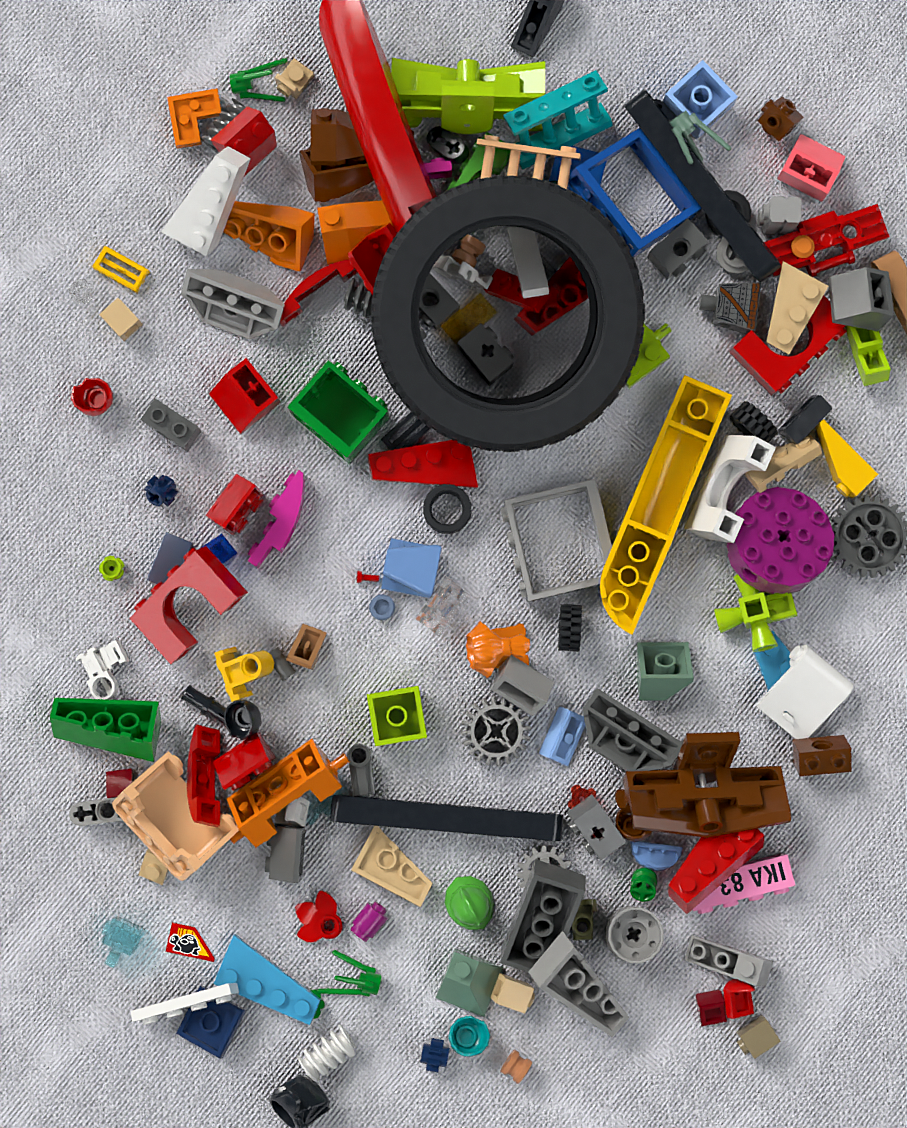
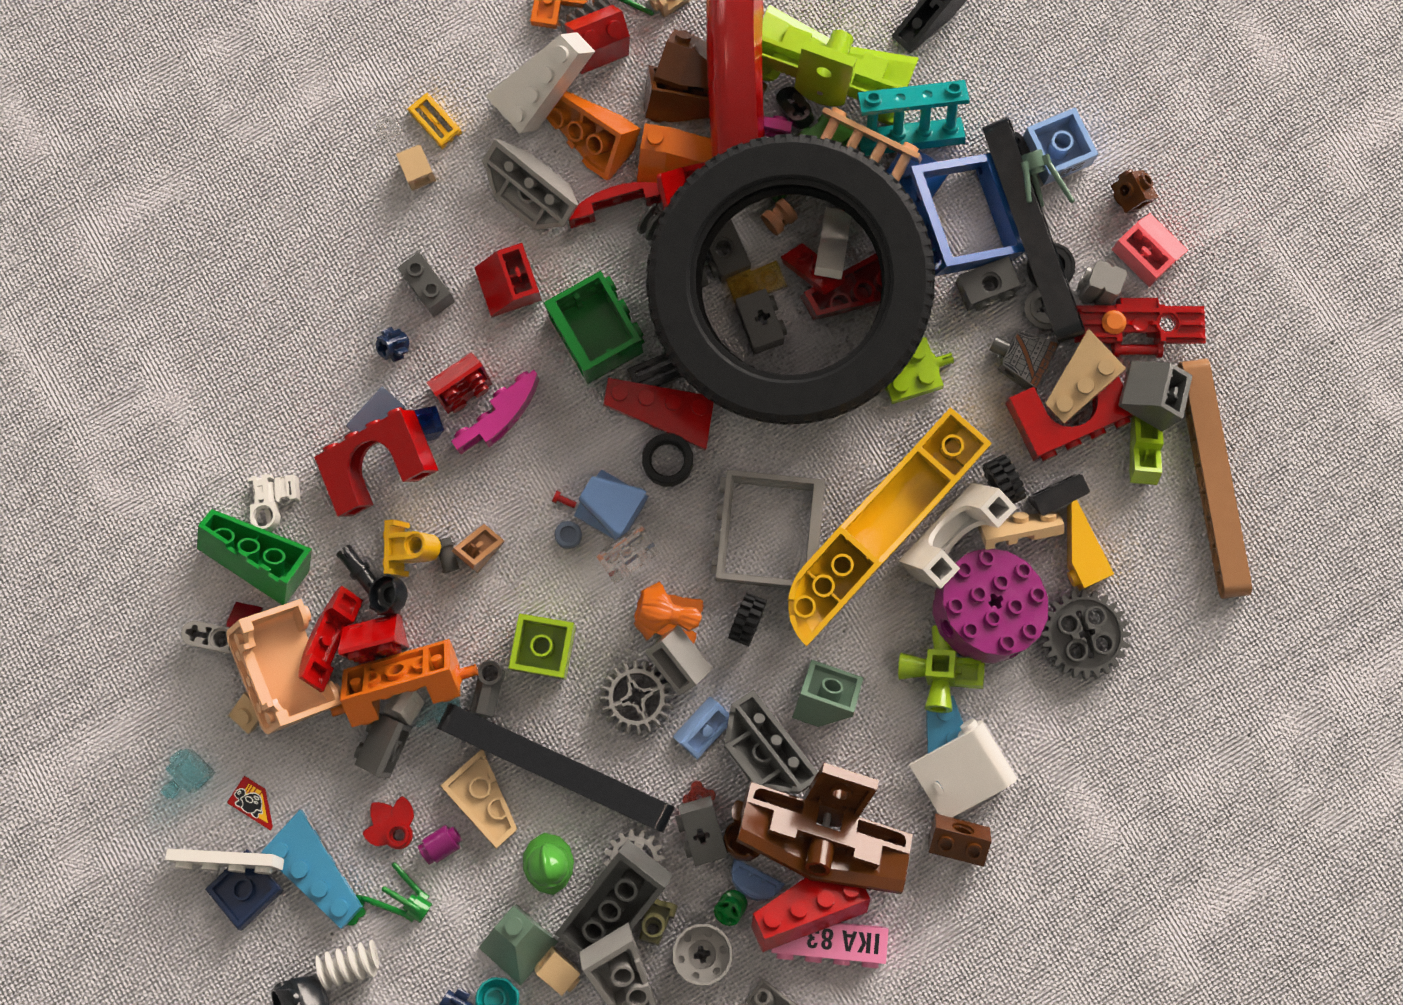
camera: 25 degrees right, 5 degrees down
(92, 396) = (360, 231): red hair -> none
(104, 568) = (311, 399): lime plate -> none
(450, 269) = (754, 227): white piece -> none

